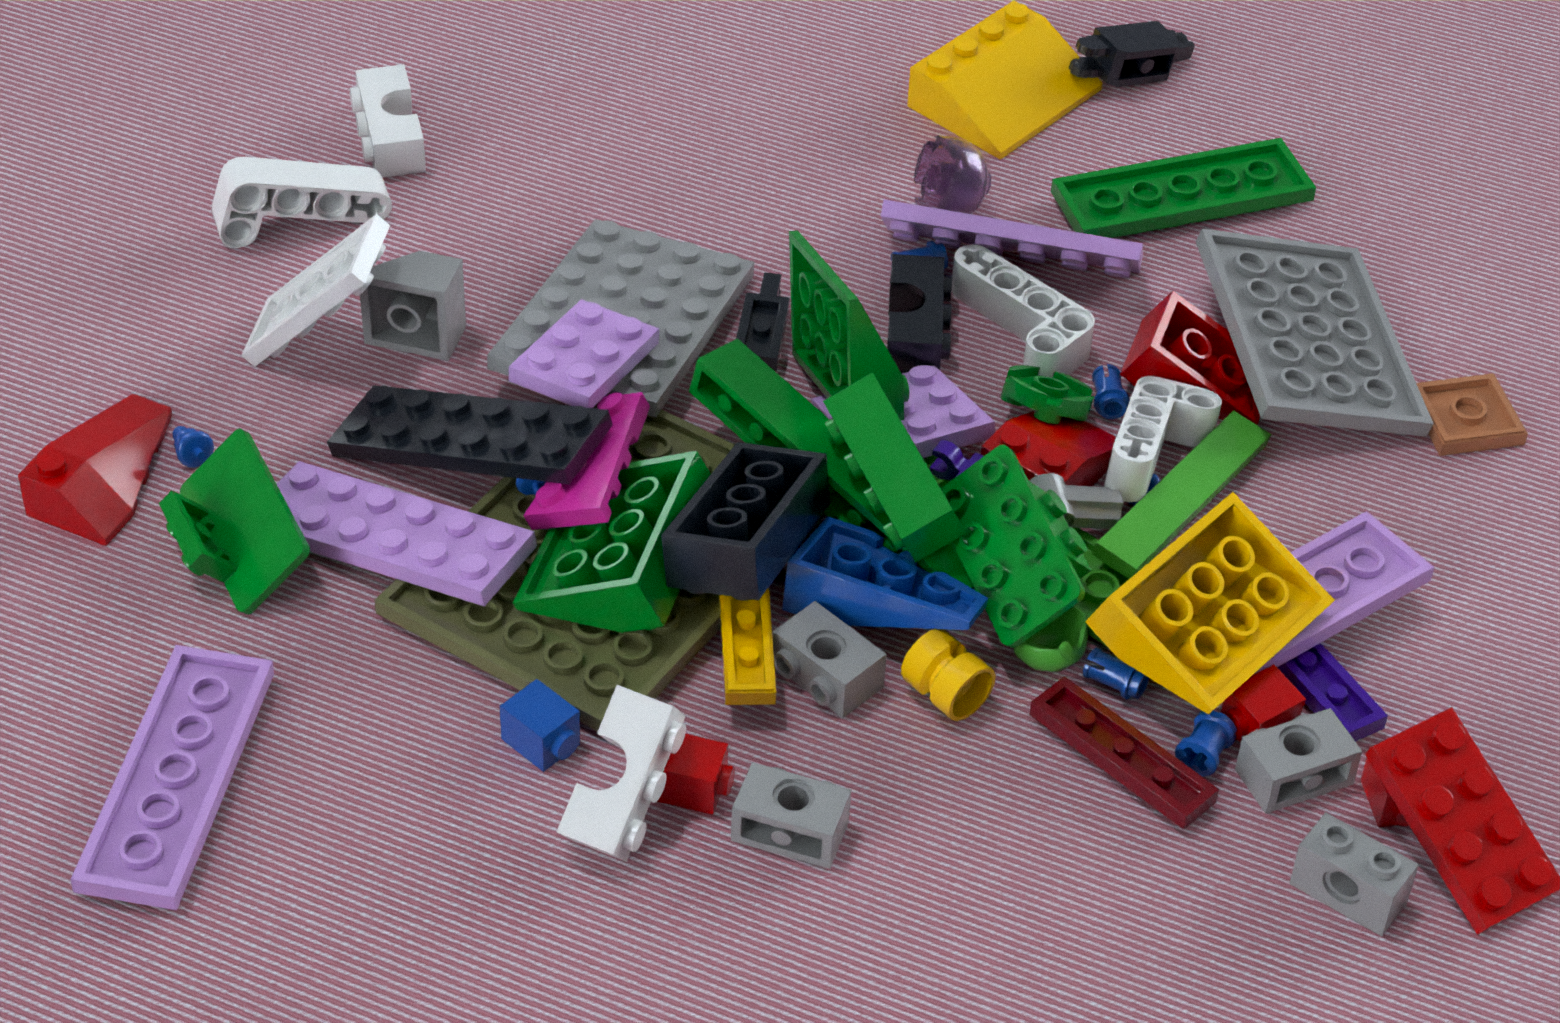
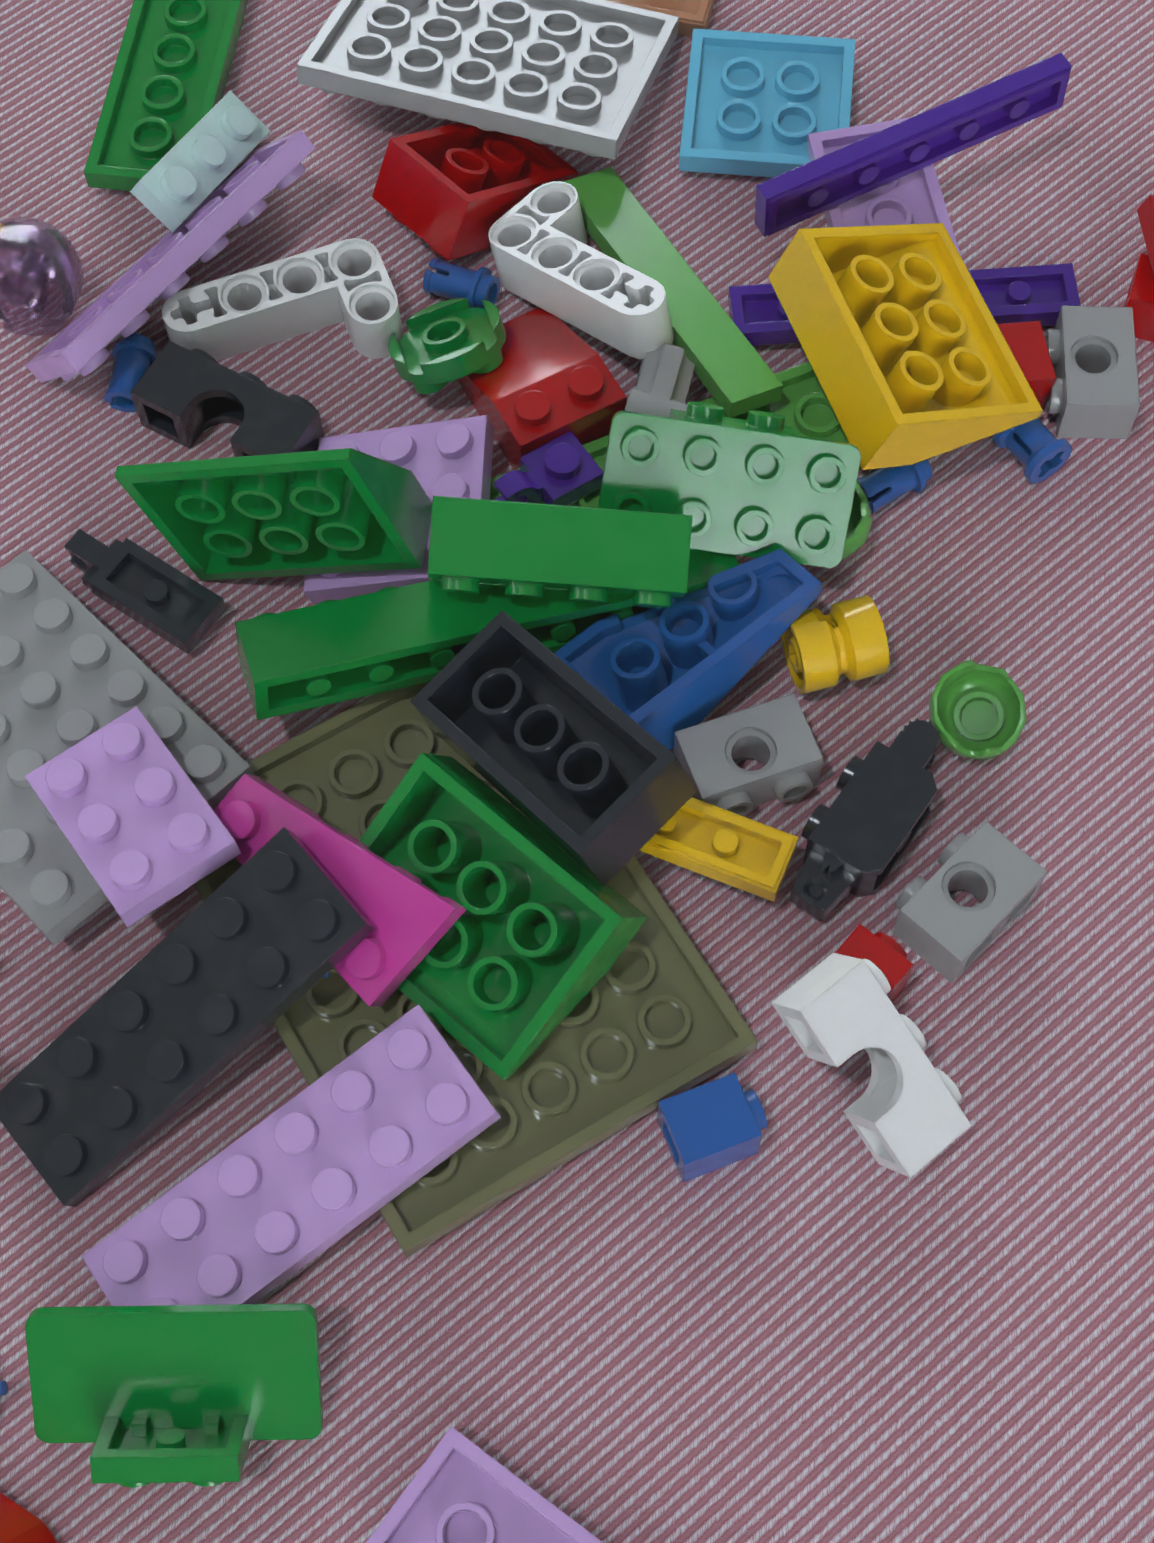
camera: 60 degrees left, 20 degrees up
(825, 740) = (869, 822): none -> black hinge
(945, 768) = (977, 710): none -> bright green hair
(1105, 220) = (200, 161): none -> light aqua plate
(1124, 752) = (1008, 527): dark red plate -> none
(1392, 559) = (911, 145): none -> dark purple tile
(1407, 490) = (760, 98): none -> medium azure plate

